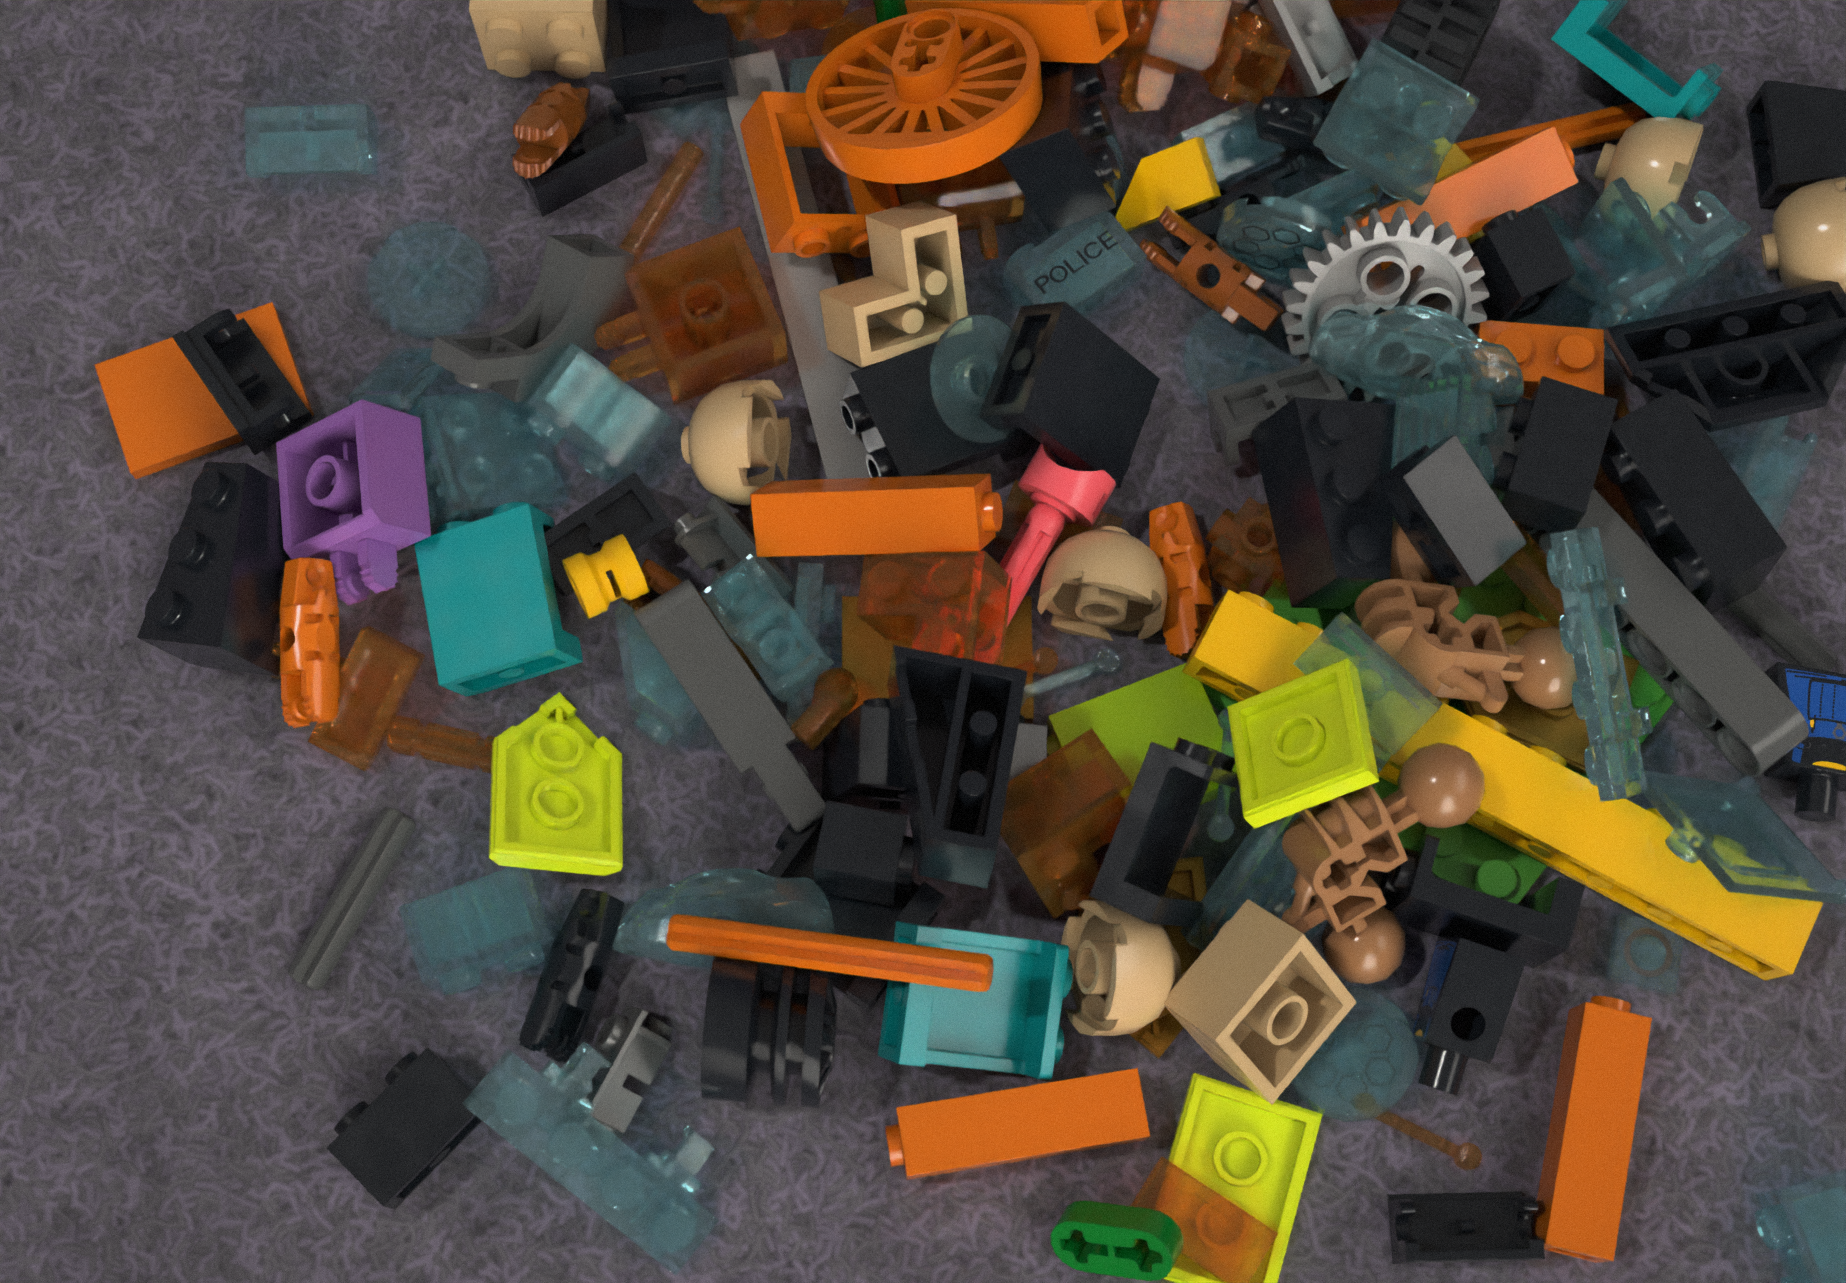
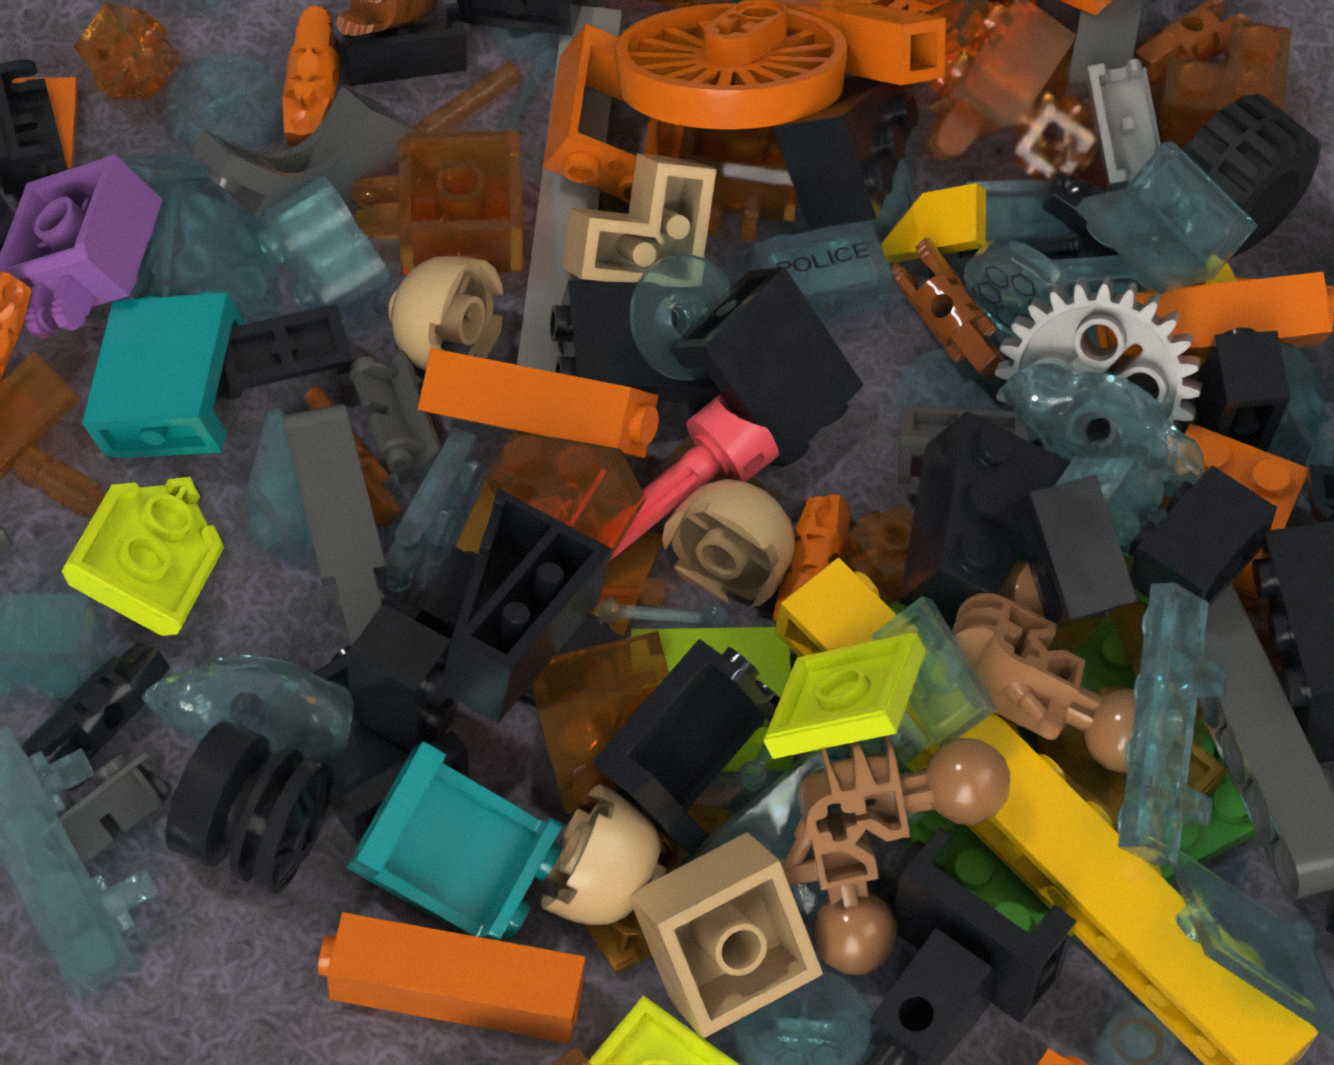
camera: 20 degrees right, 15 degrees down
(314, 261) = (127, 52): none -> clear orange brick
(504, 227) = (310, 75): none -> orange hinge
(591, 582) = (255, 376): yellow wheel -> none
(767, 628) = (399, 468): clear light blue slope -> none
(831, 952) = (335, 741): orange axle -> none
(832, 699) = (423, 554): clear orange arm -> none

